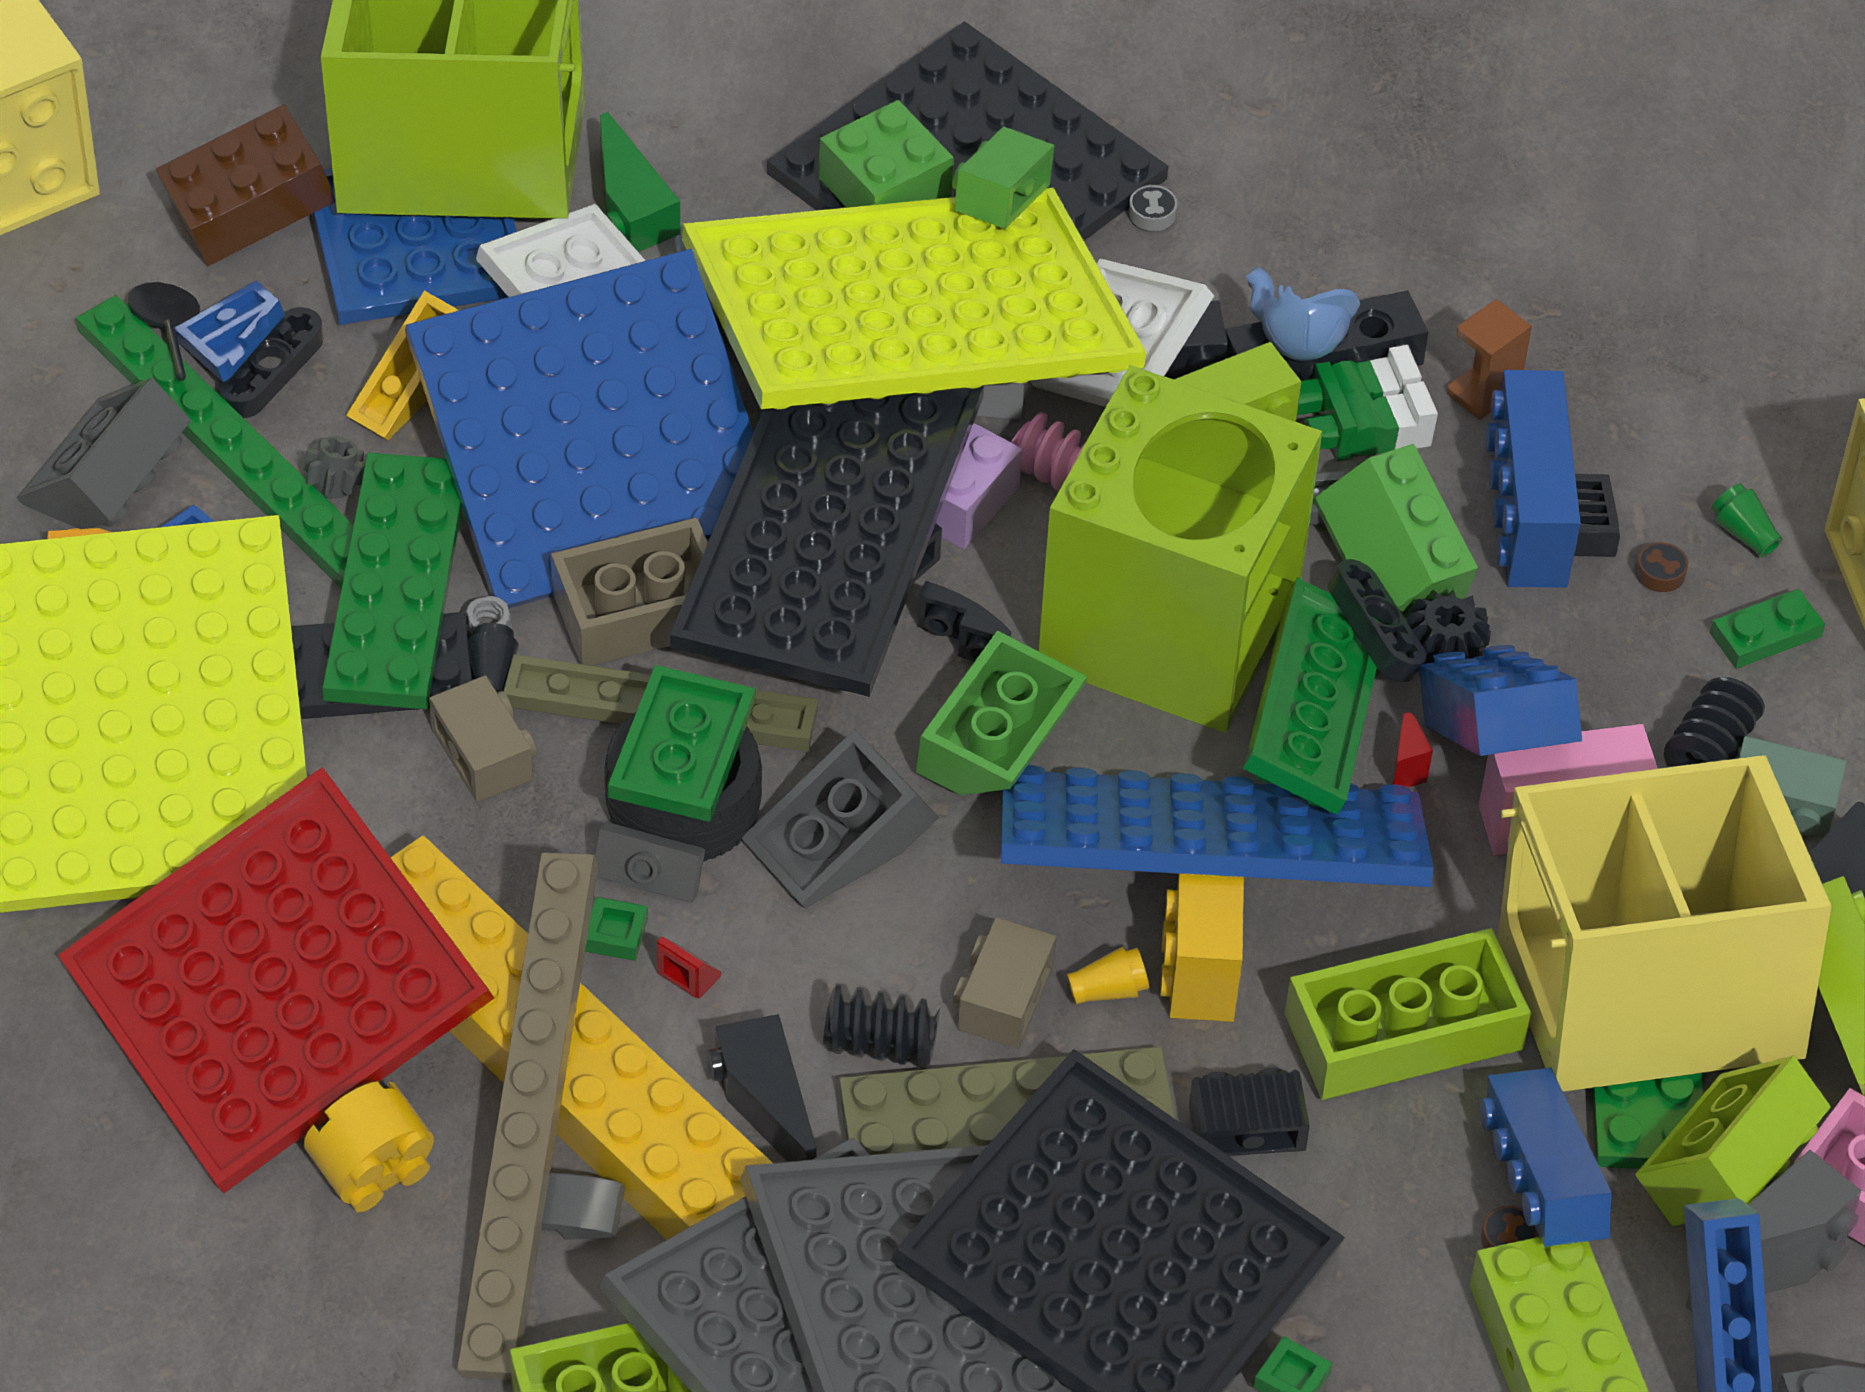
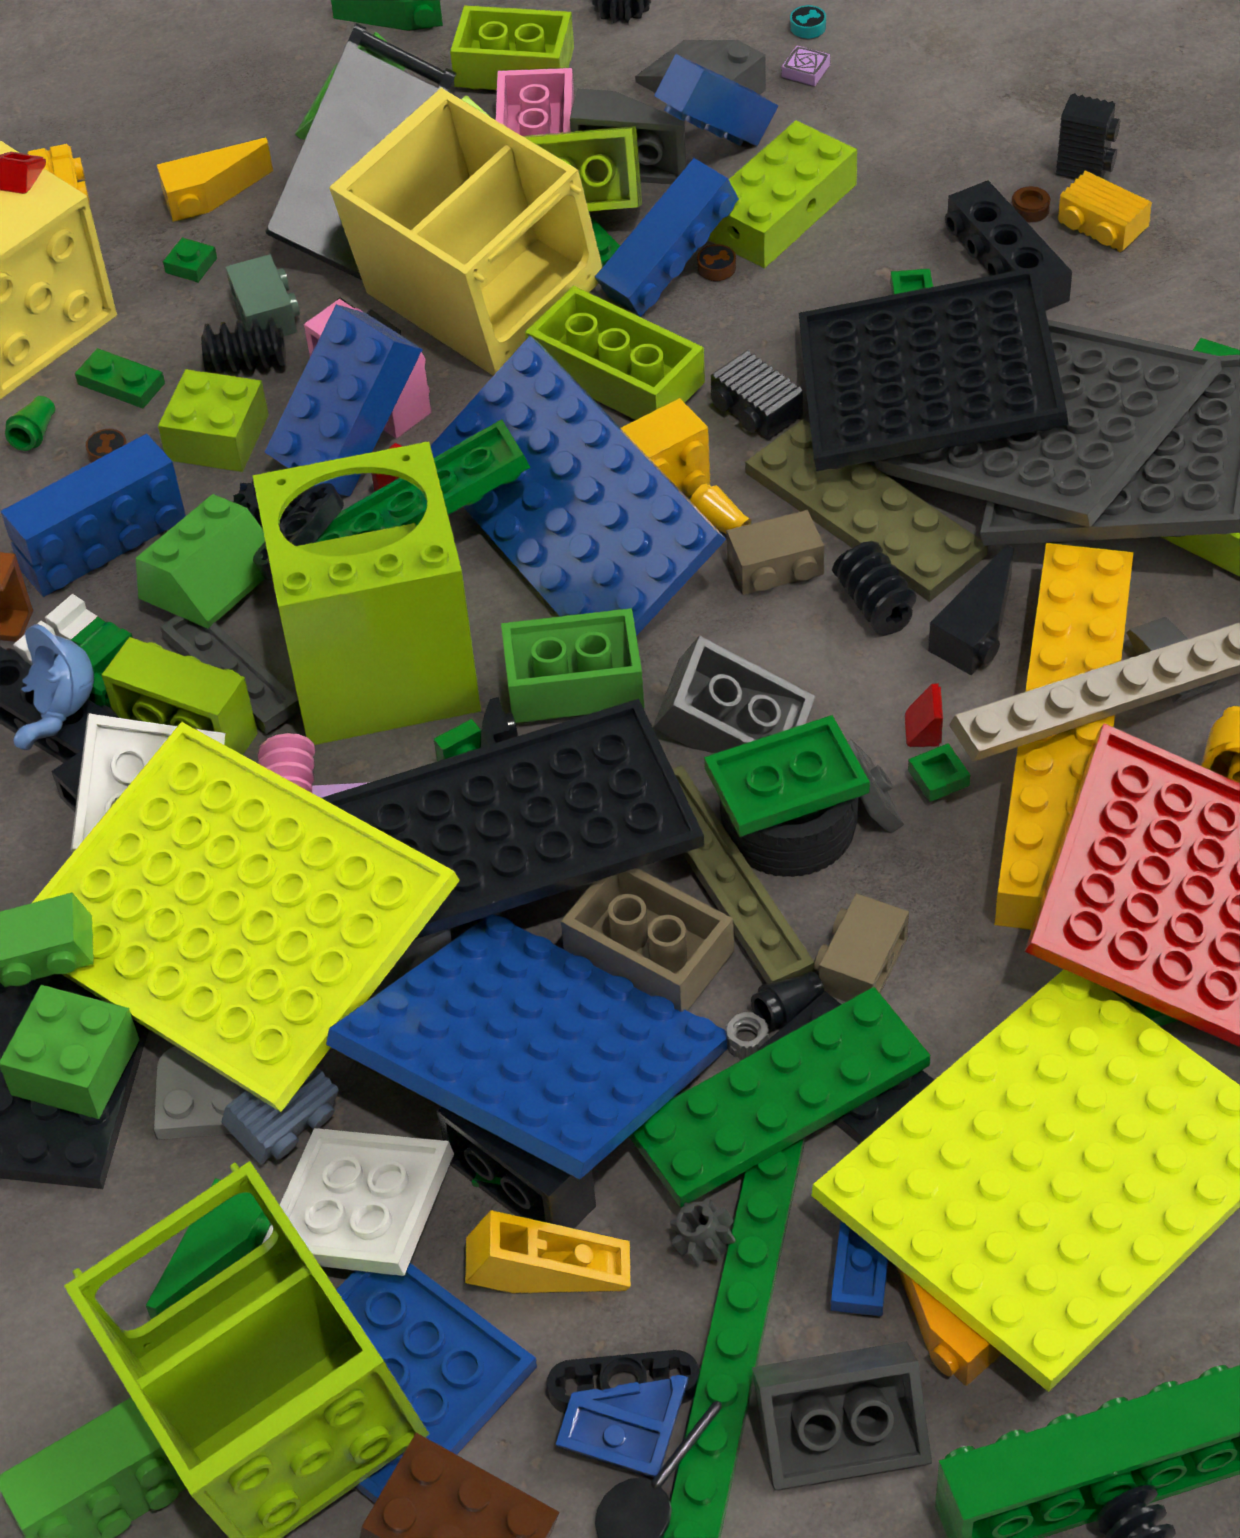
camera: 120 degrees left, 0 degrees up
(989, 593) = (458, 740): none -> green plate
(1615, 648) = (213, 420): none -> lime brick

